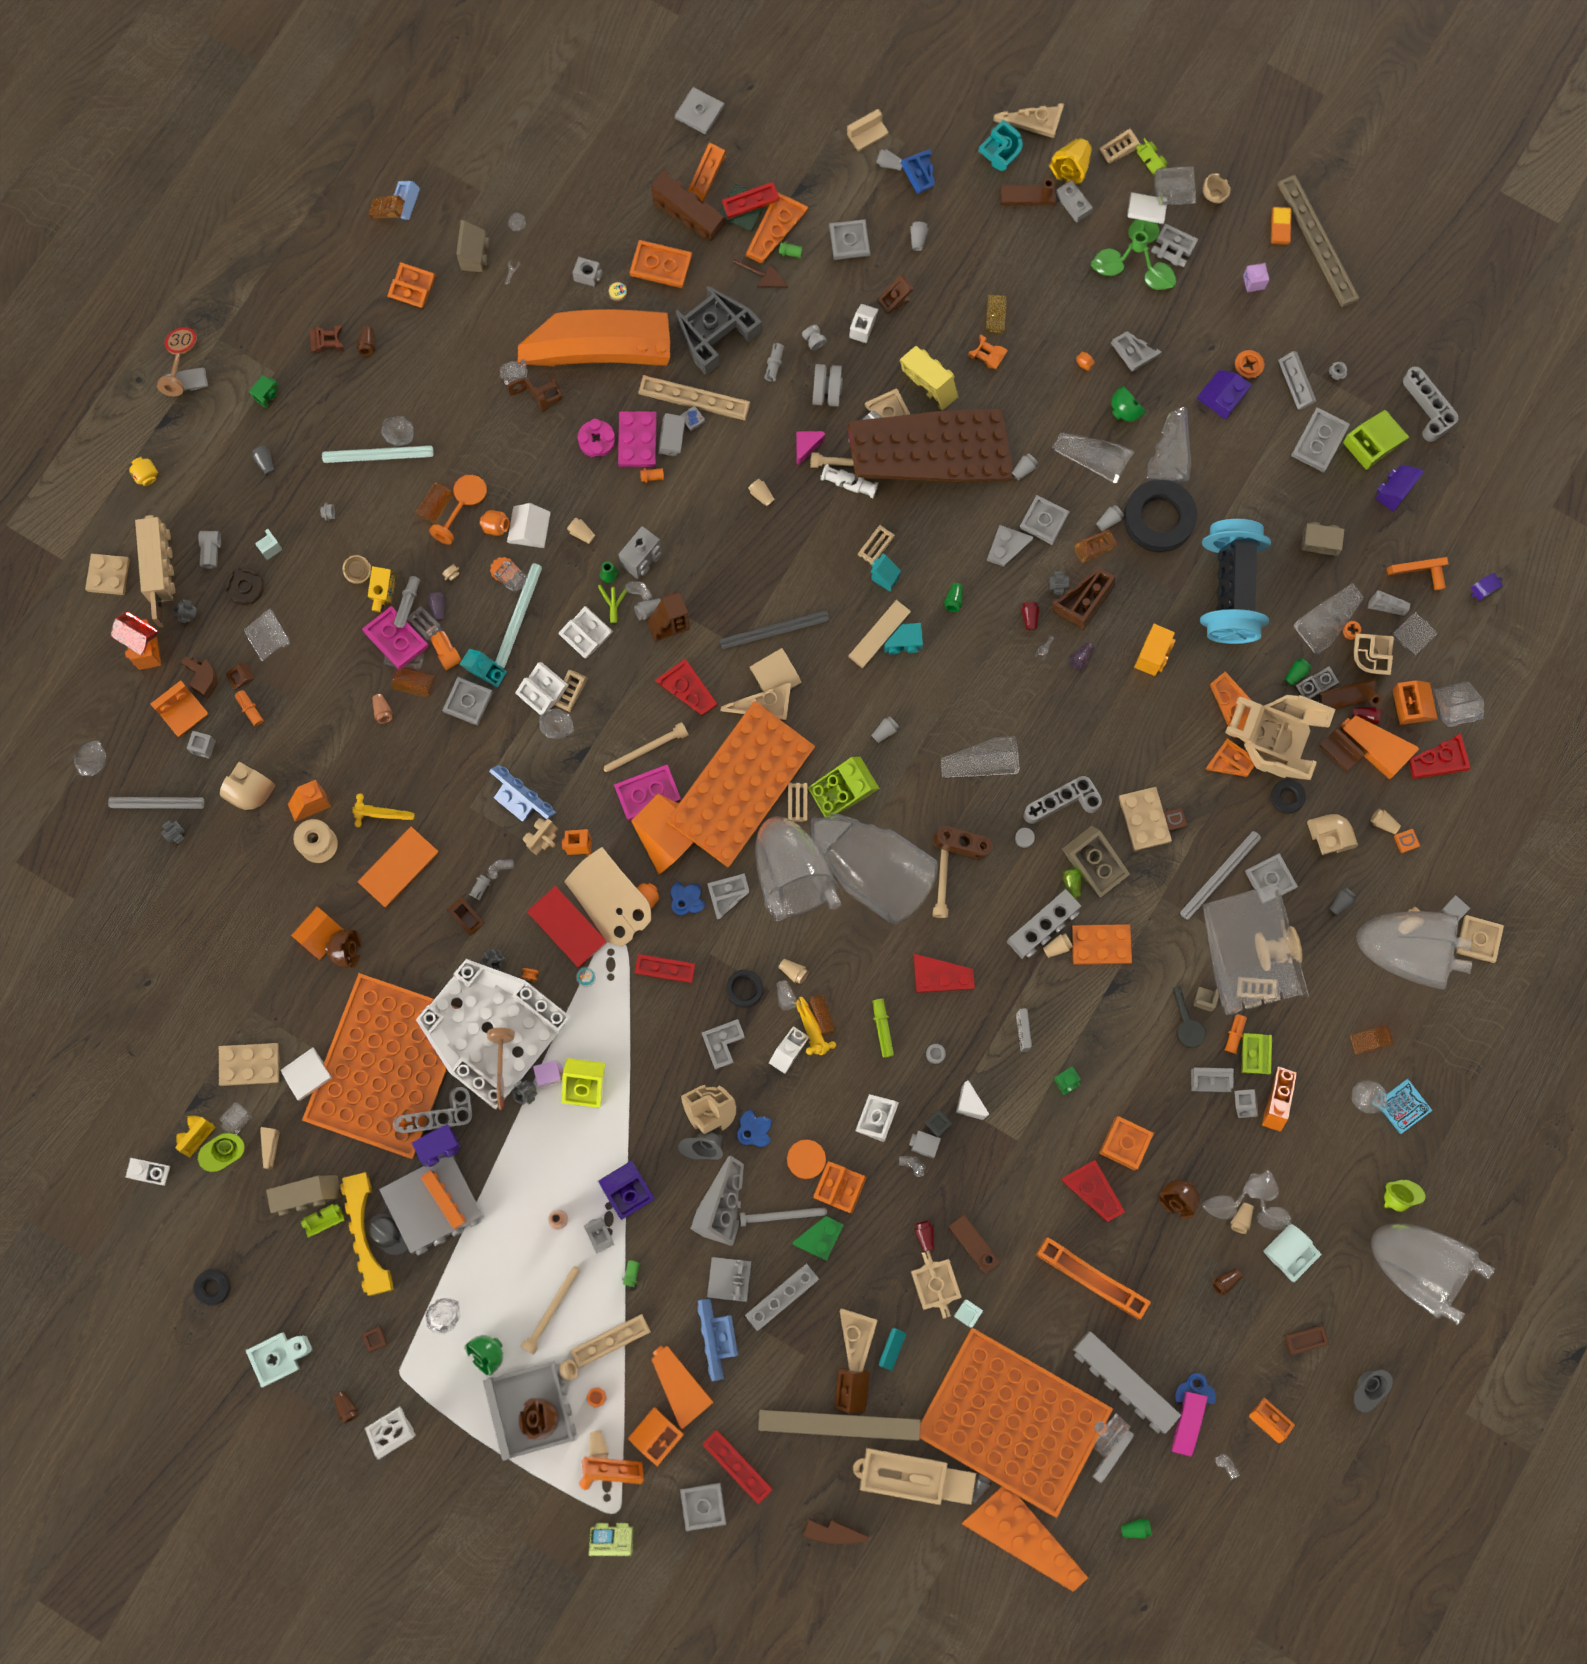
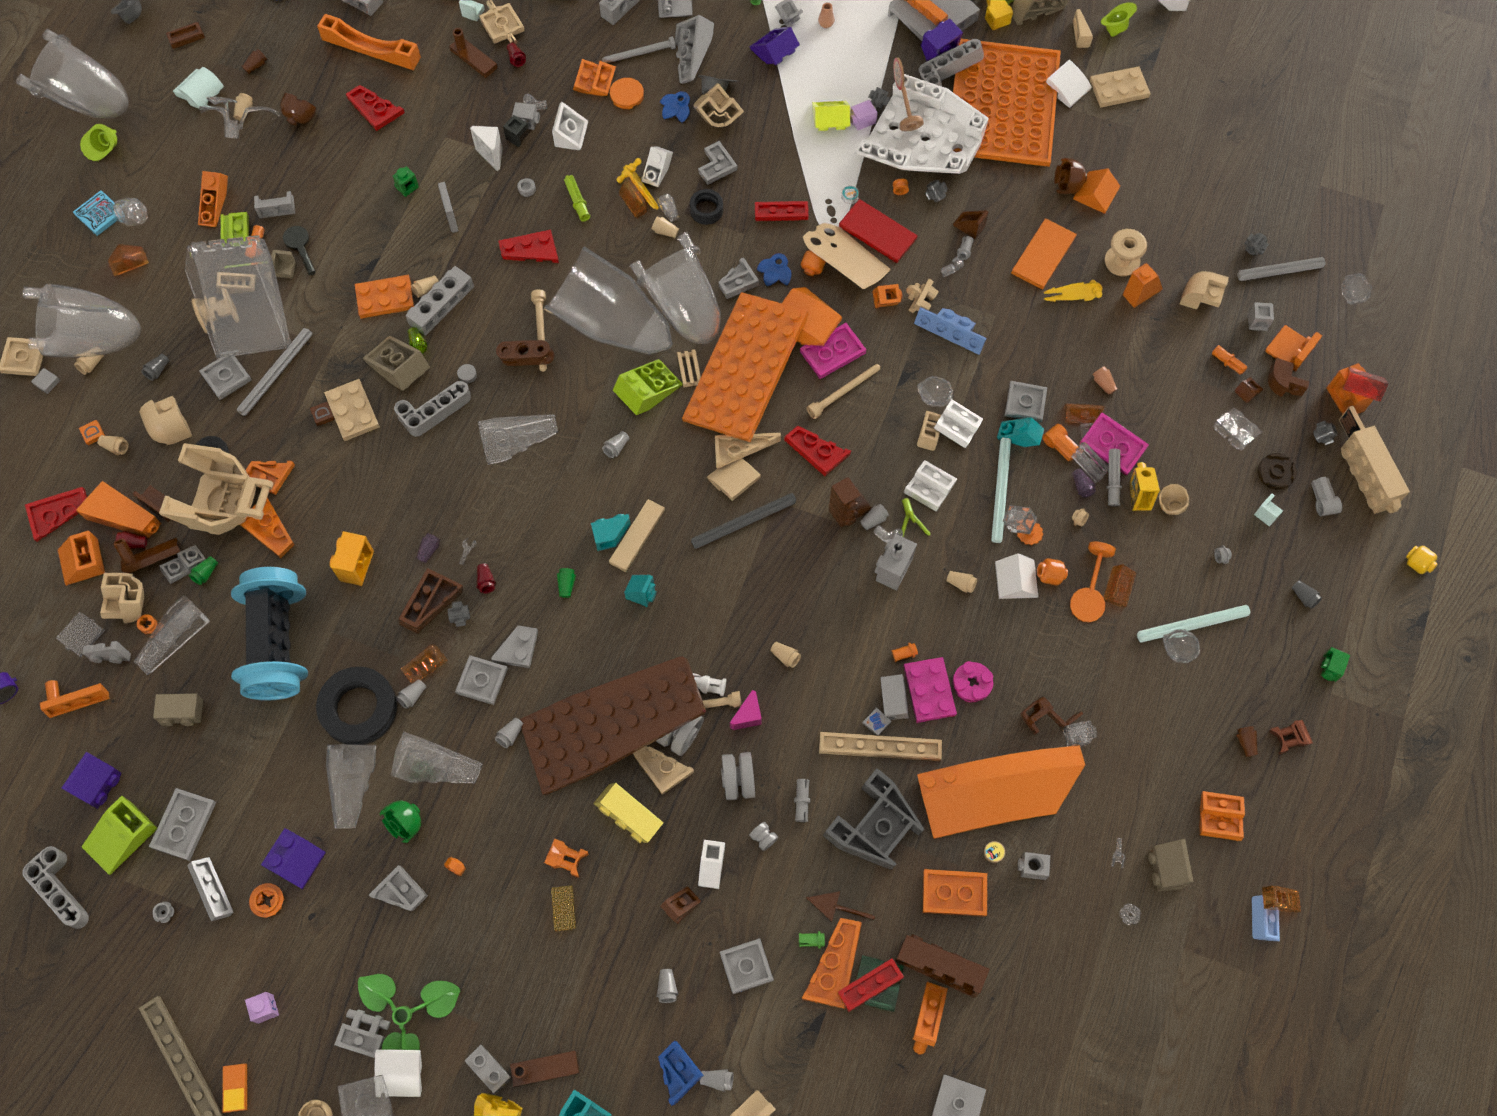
camera: 170 degrees right, 10 degrees down
(107, 574) = (1413, 458): tan plate -> none
(177, 342) = (1441, 702): medium nougat piece -> none
(192, 378) = (1418, 661): light grey slope -> none
(199, 1130) = (1142, 32): yellow tile -> none
(235, 1118) = (1115, 45): clear brick -> none
(610, 575) = (924, 544): green cone -> none
(820, 1238) = (604, 41): green wing -> none
(868, 557) = (648, 638): tan tile -> none
(1126, 1143) = (348, 140): orange container -> none
(1246, 1103) = (241, 185): light grey brick -> none
(1459, 704) = (35, 567): clear slope -> none

